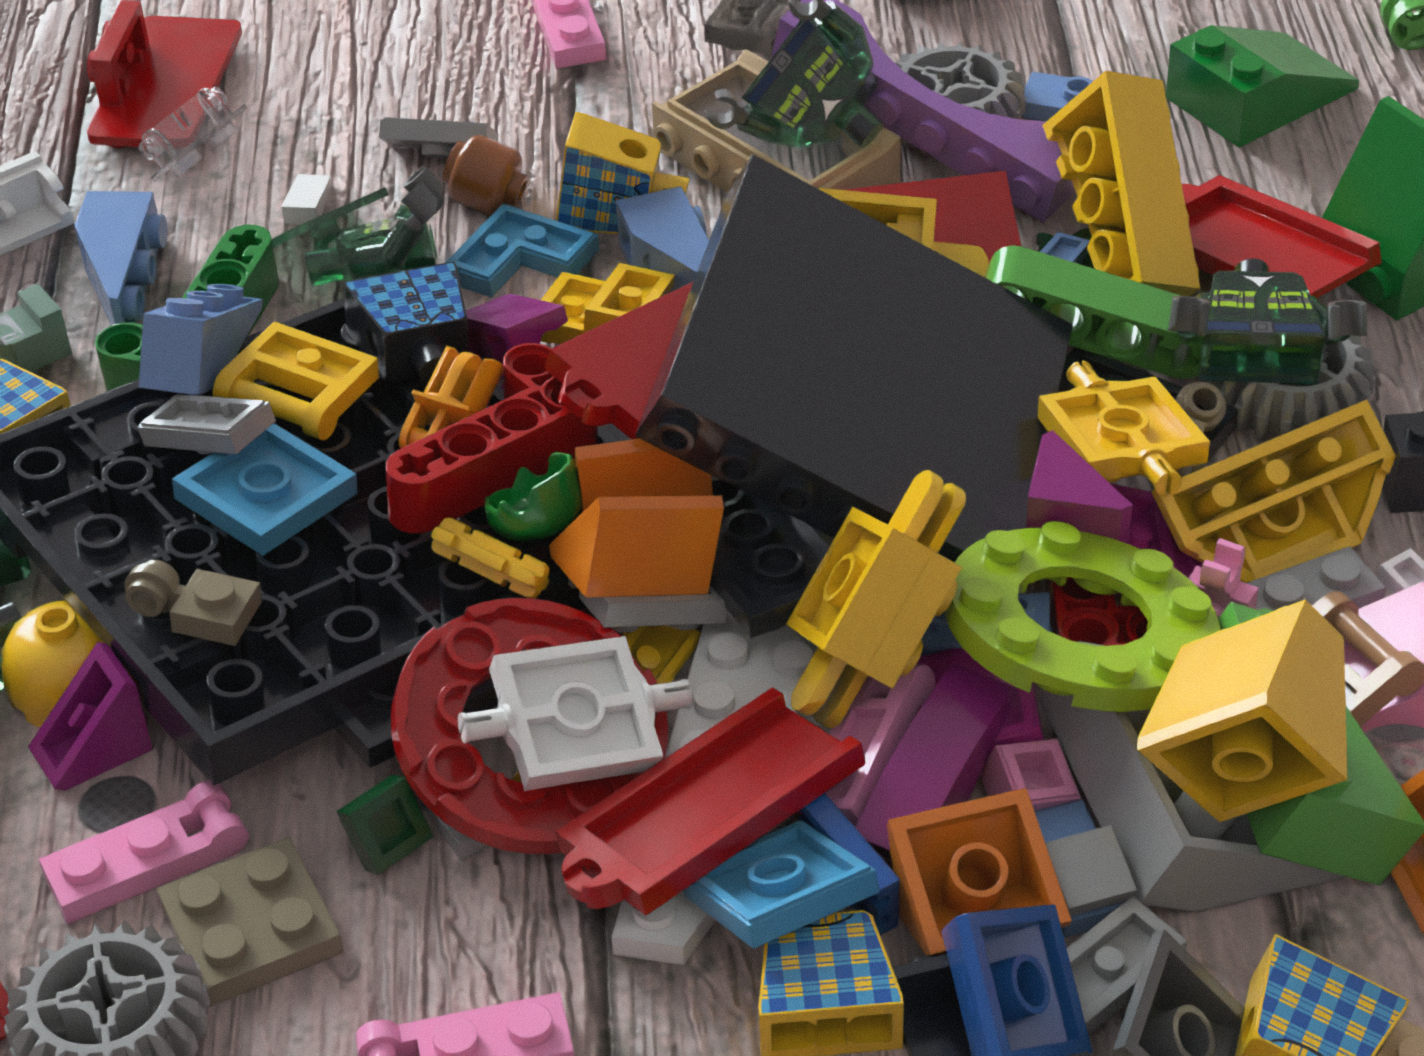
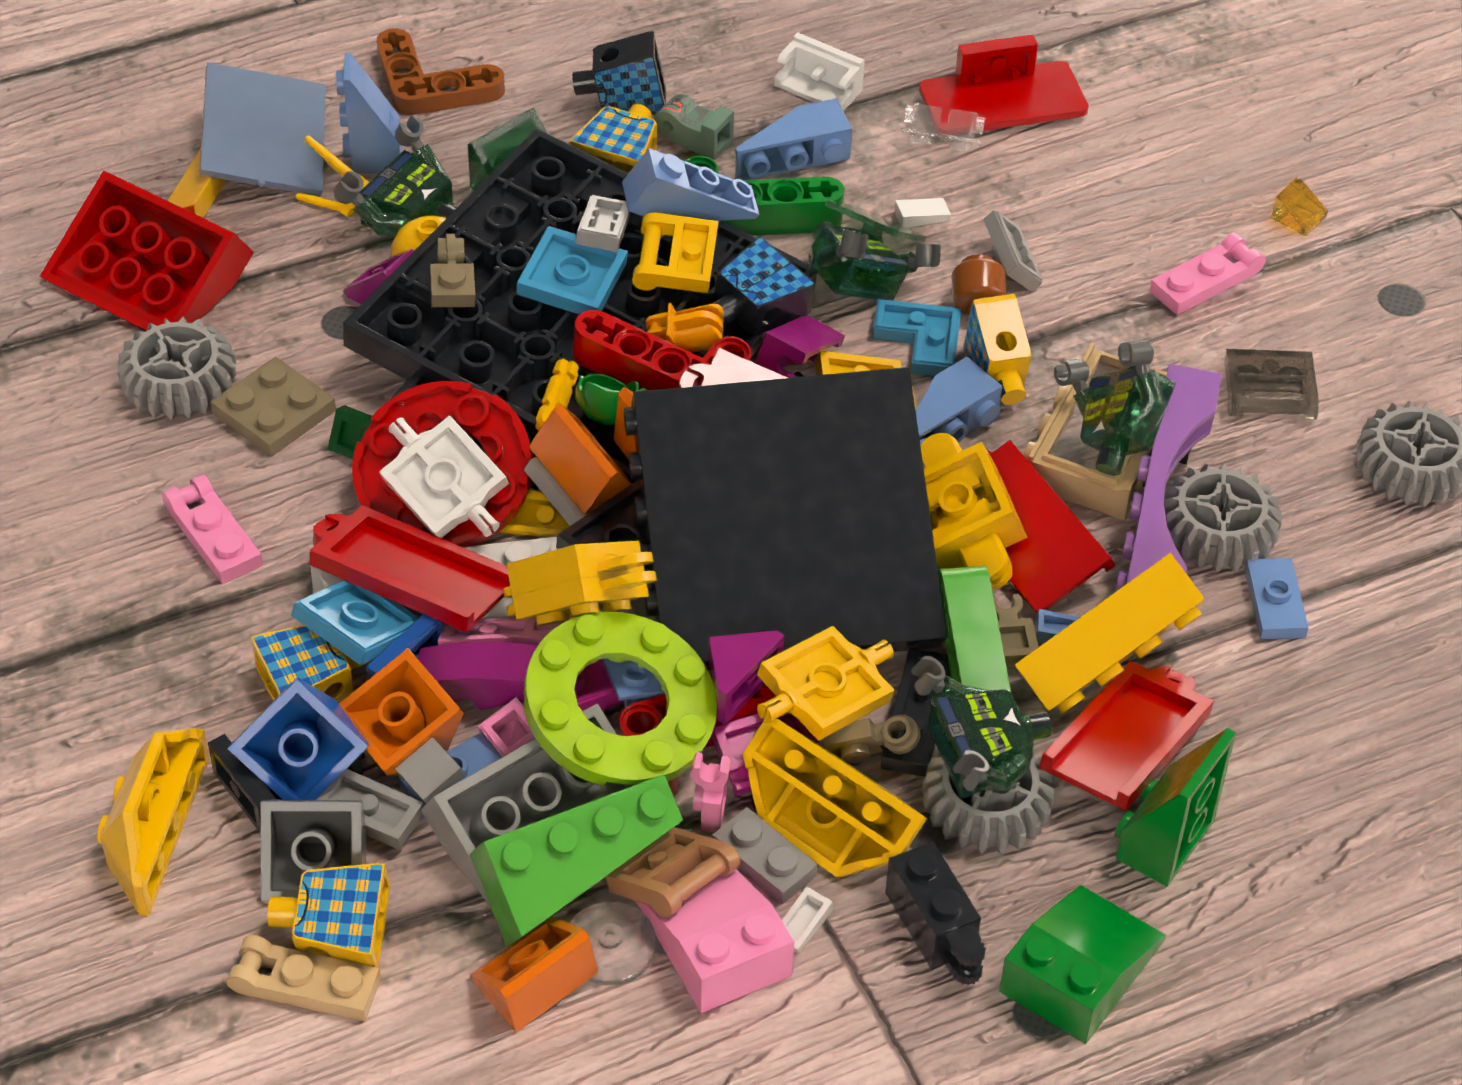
camera: 65 degrees right, 5 degrees up
(144, 853) = (304, 343): bright pink plate -> none
(1250, 80) = (1370, 702): green slope -> none
(1253, 713) = (528, 784): yellow slope -> none

